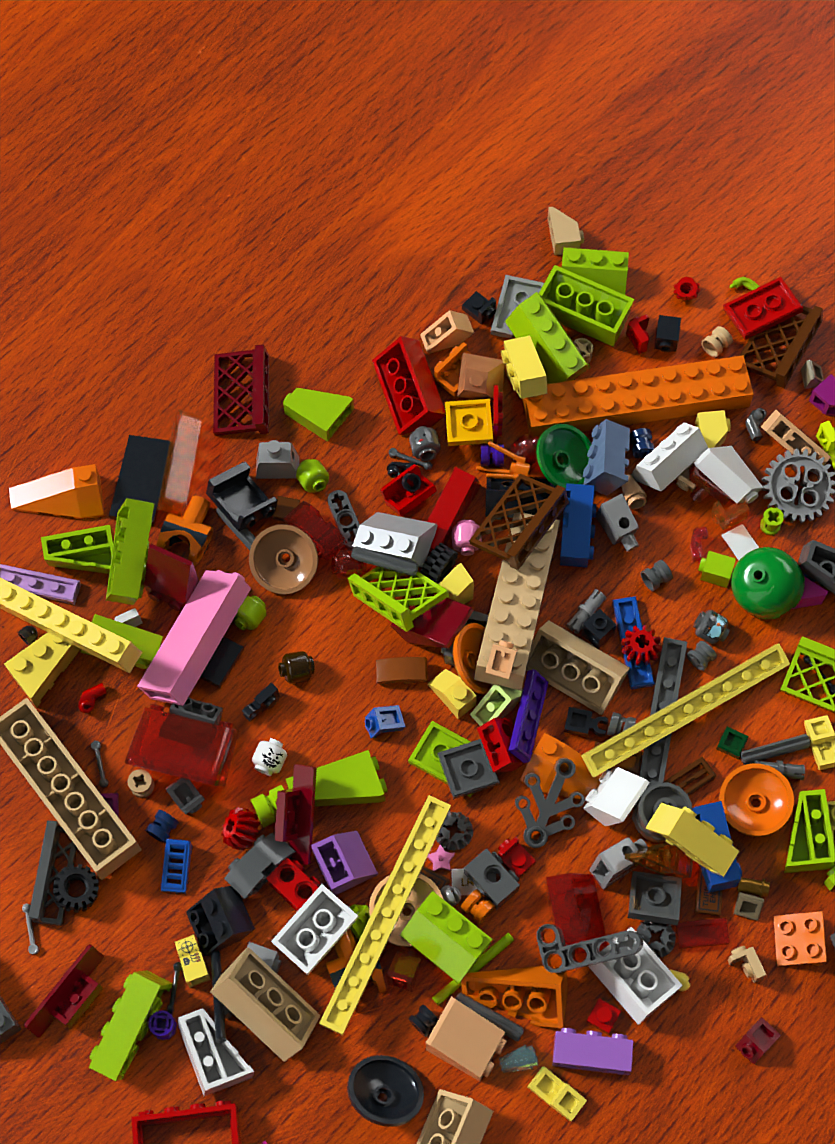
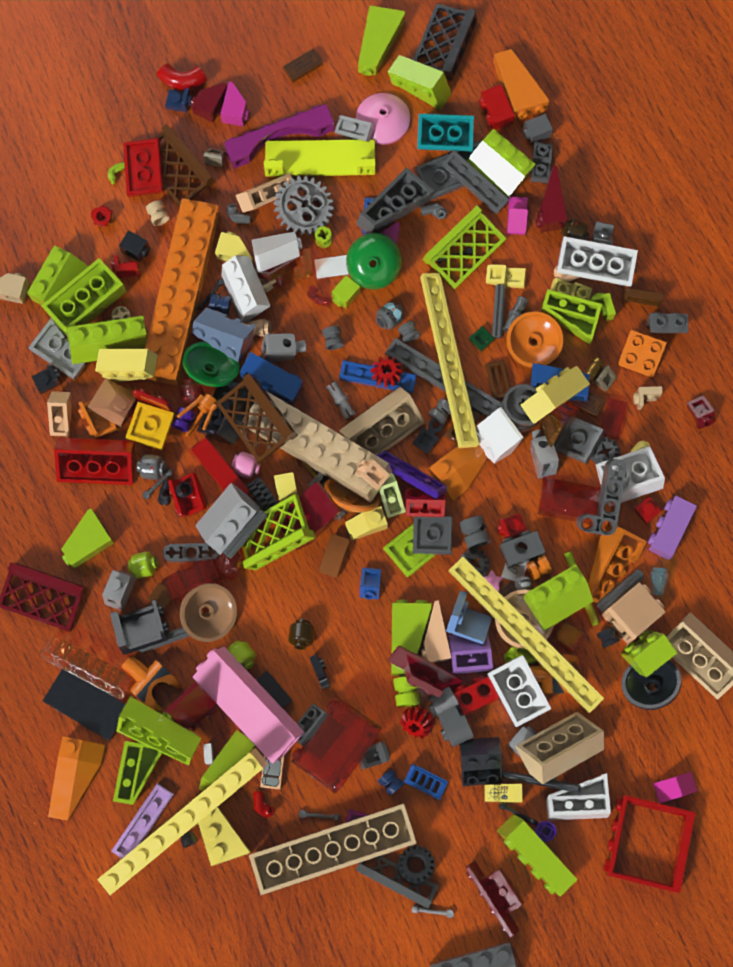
camera: 70 degrees left, 10 degrees up
(129, 696) = (272, 774): none -> tile
(141, 788) = (351, 789): tan wheel -> none
(269, 757) = (367, 680): white head -> none
(349, 815) = (436, 643): none -> light nougat slope
(378, 842) = (468, 622): none -> medium blue bracket
(421, 1073) = (648, 652): none -> lime slope
(489, 816) = (475, 532): none -> dark grey wheel
(548, 807) = (484, 487): dark grey plant -> none
(557, 1093) = (690, 564): light yellow slope -> none
(598, 628) = (359, 396): black brick -> none
(632, 426) = (220, 282): none -> black hinge

